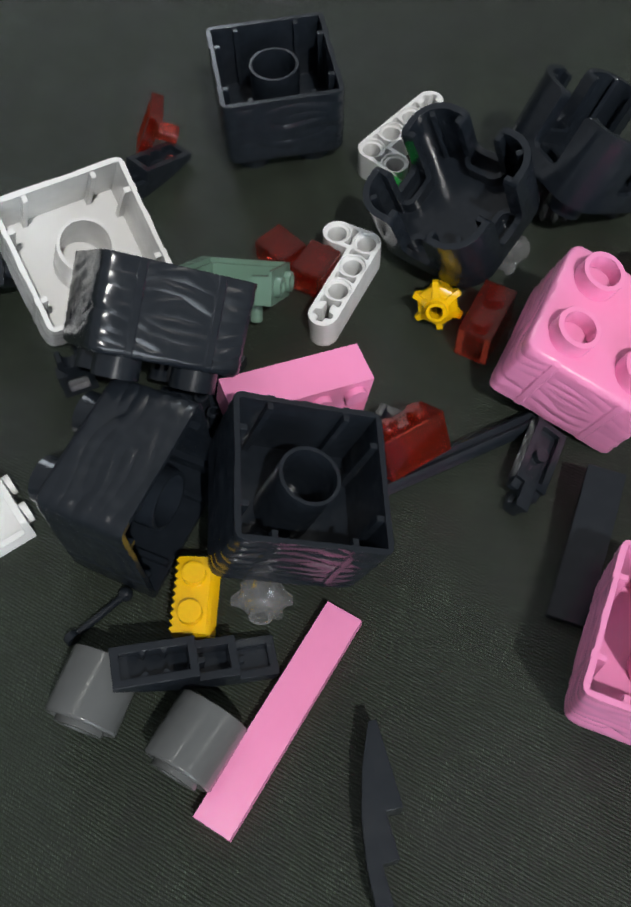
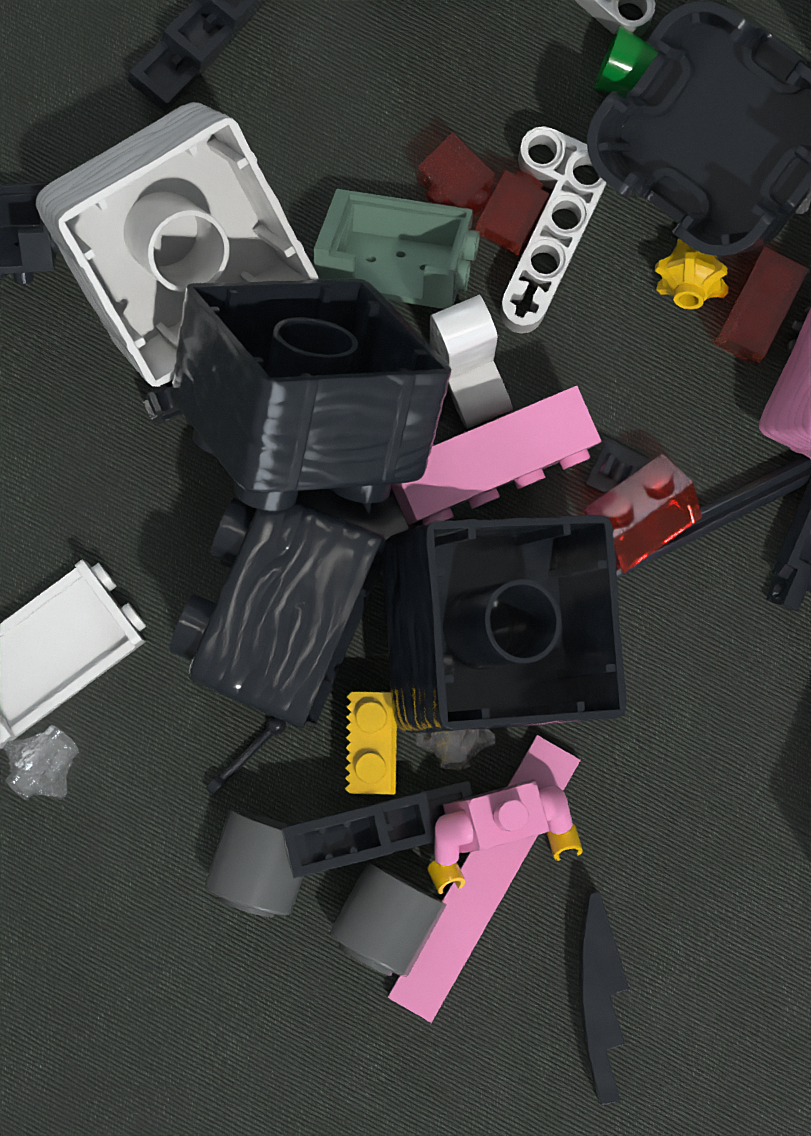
camera: 10 degrees left, 25 degrees up
(277, 314) = (467, 342): none -> white beam
(292, 653) = (499, 819): none -> bright pink torso

